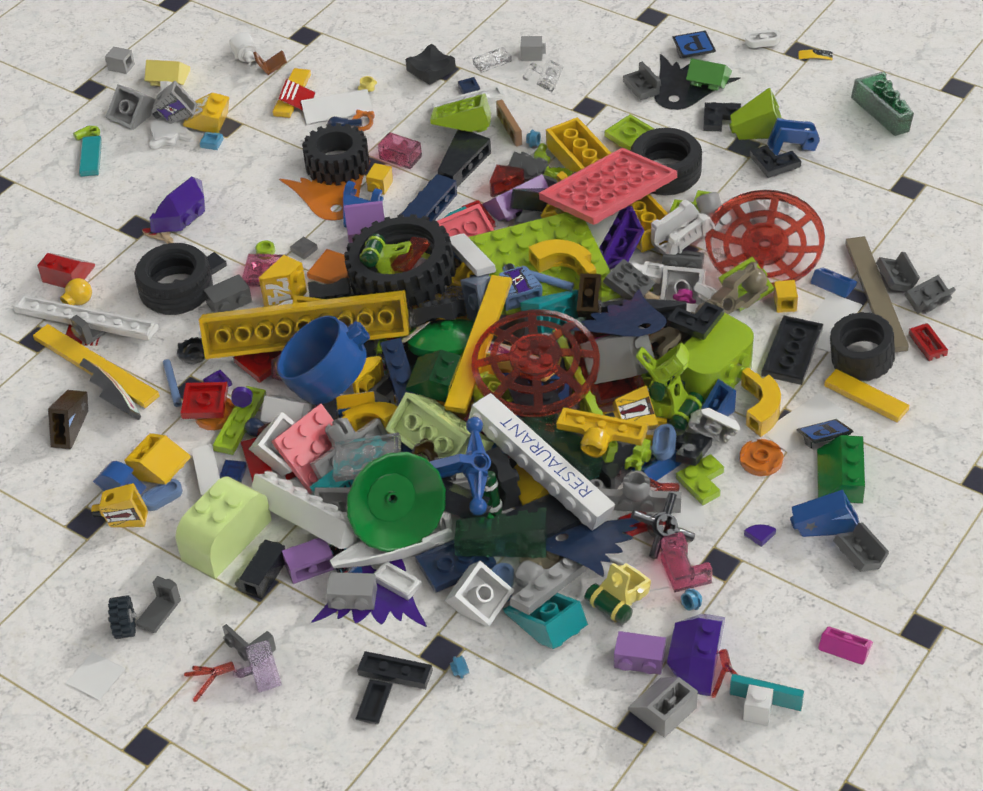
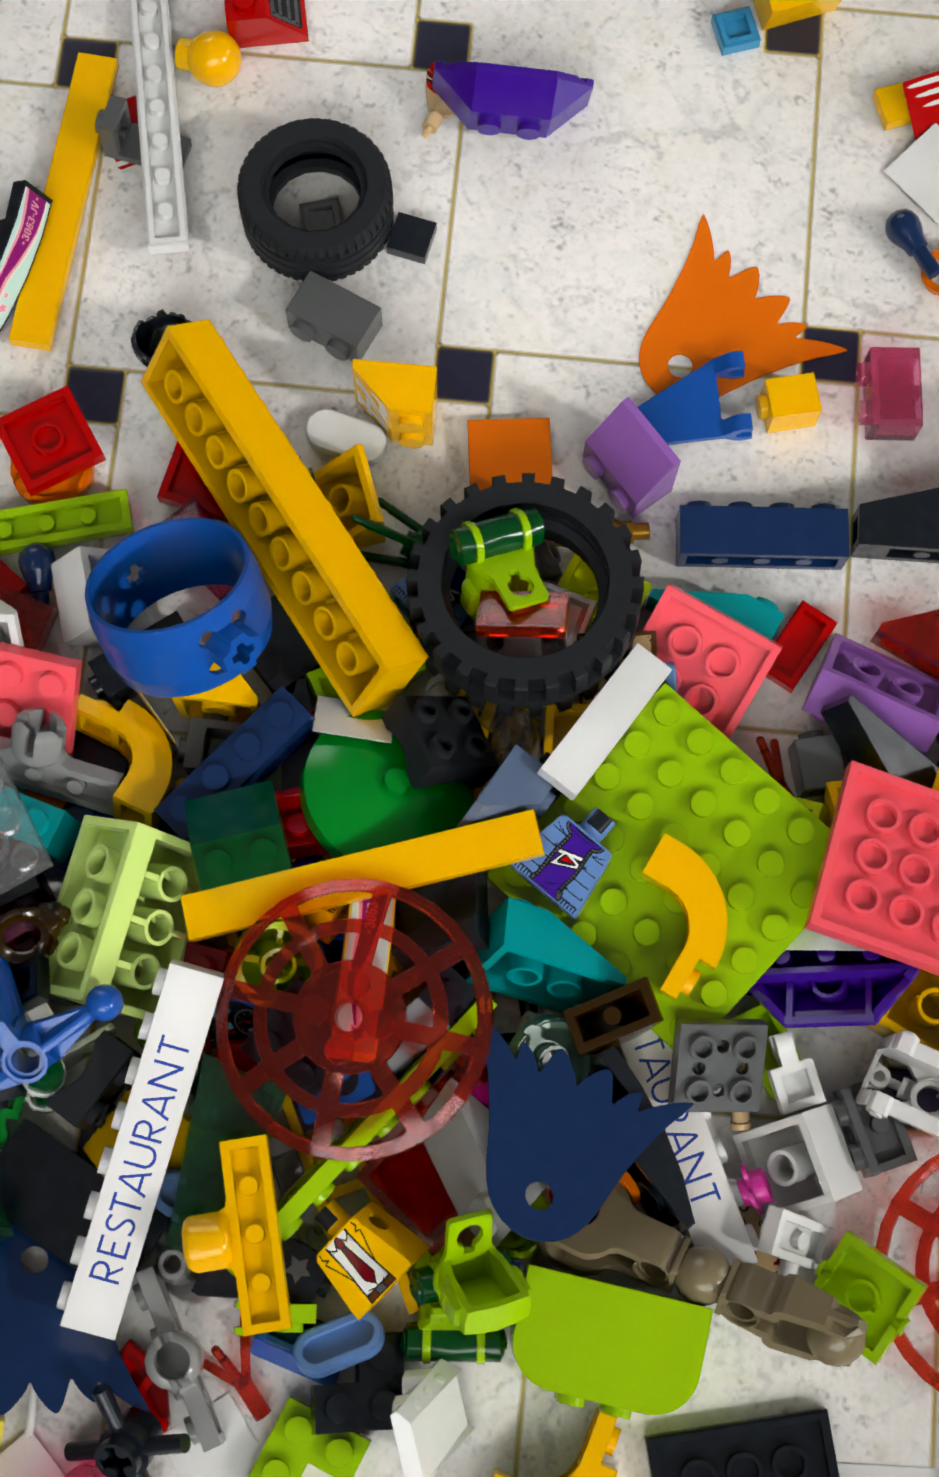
camera: 55 degrees right, 30 degrees up
(172, 383) = (88, 352): medium blue piece -> none
(218, 376) = (131, 426): dark purple tile -> none
(241, 397) = (78, 502): dark purple tile -> none
(256, 266) = (437, 335): clear pink plate -> none
(265, 247) = (497, 306): lime tile -> none
(303, 247) = (536, 373): flat silver tile -> none
(337, 289) = (417, 485): black brick -> none
(339, 166) = (800, 326): black tyre -> none
(553, 281) = (625, 897): medium blue piece -> none
(696, 324) = (632, 1286): black plate -> none
(721, 399) = (498, 1396): blue slope -> none
(785, 296) = (881, 1390): yellow brick -> none

